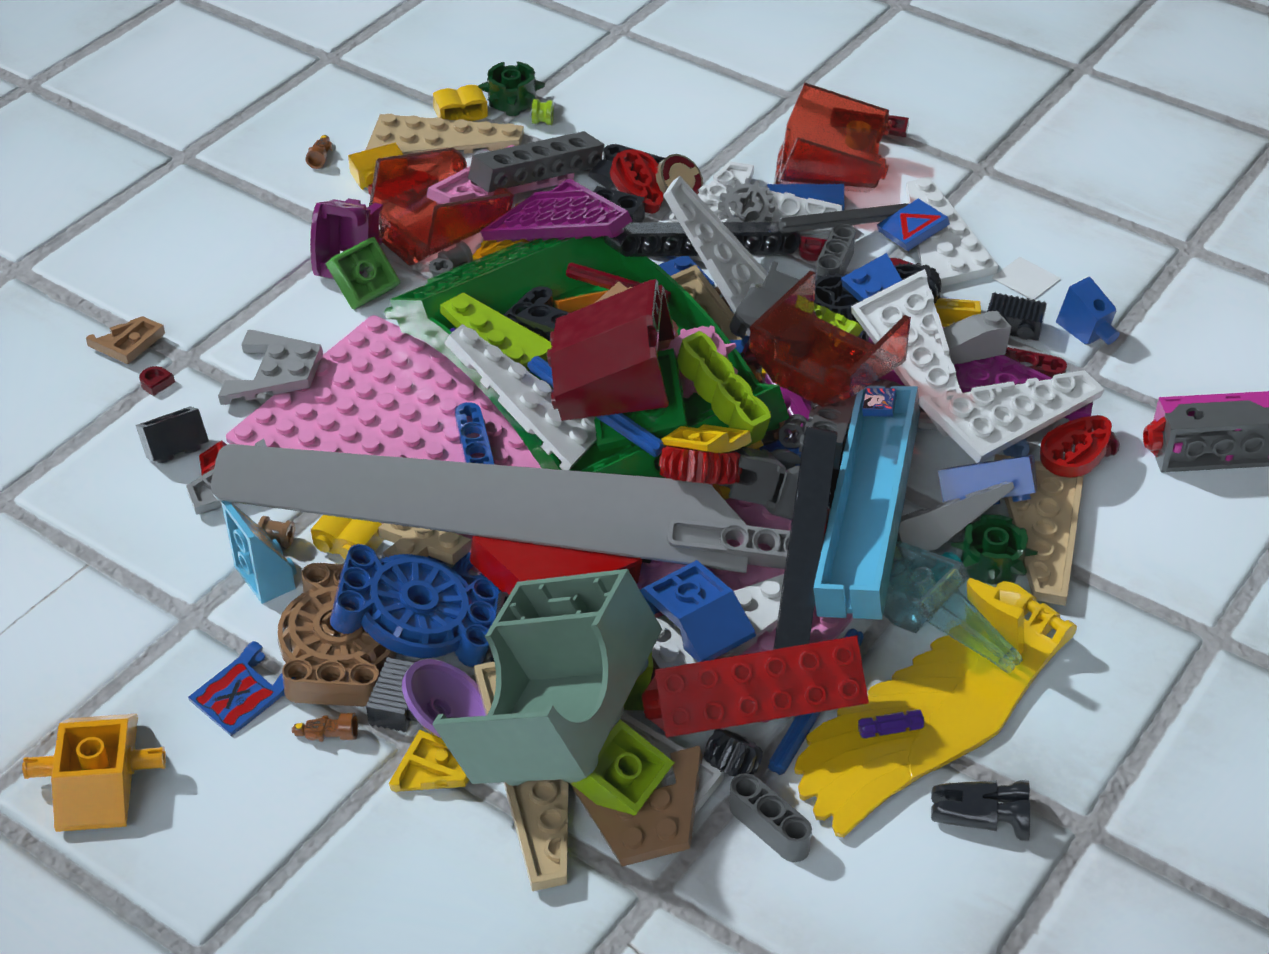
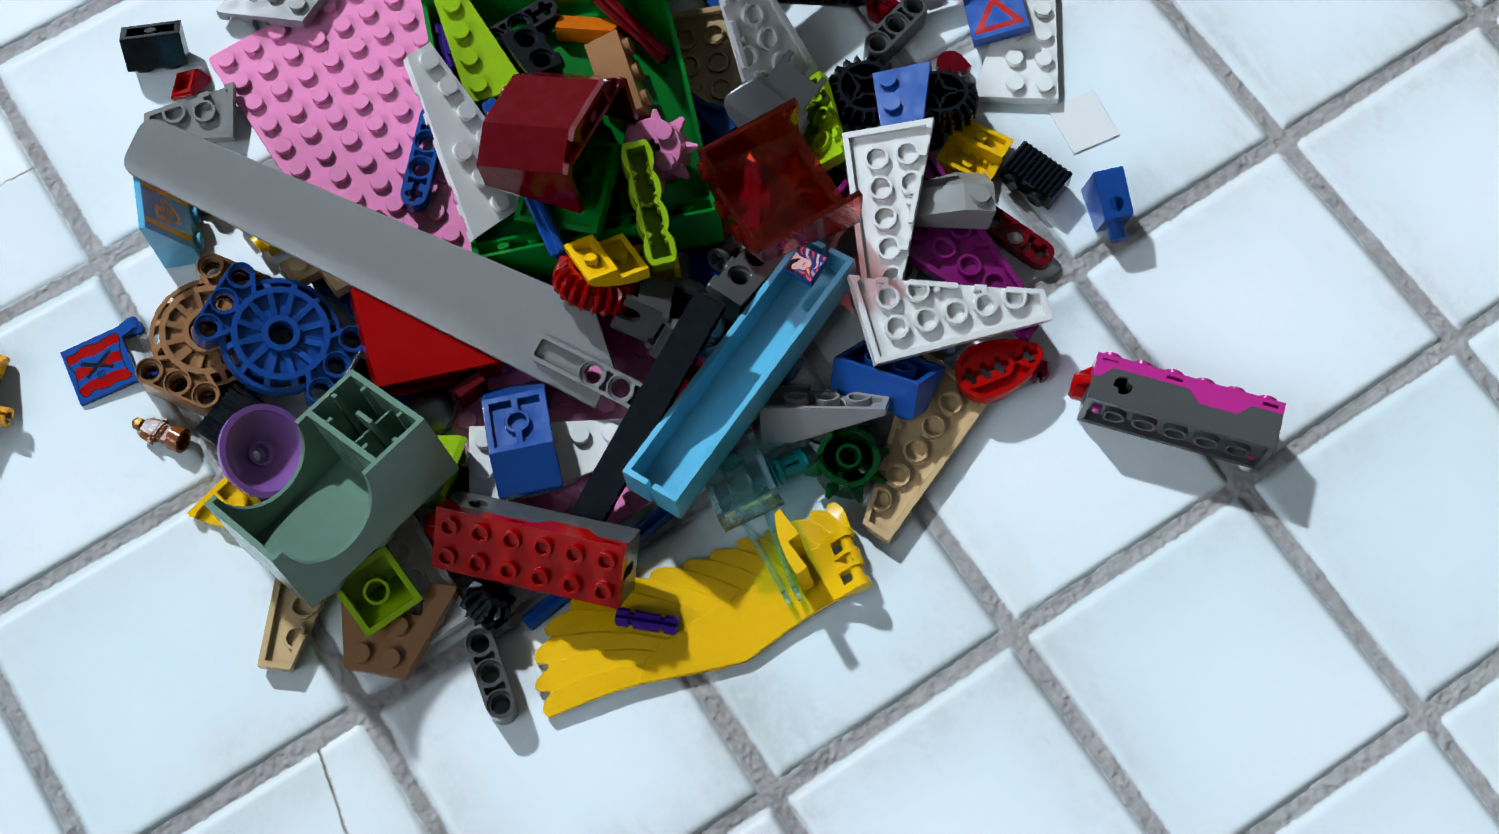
camera: 20 degrees right, 25 degrees up
(978, 806) = (682, 737): black piece -> none

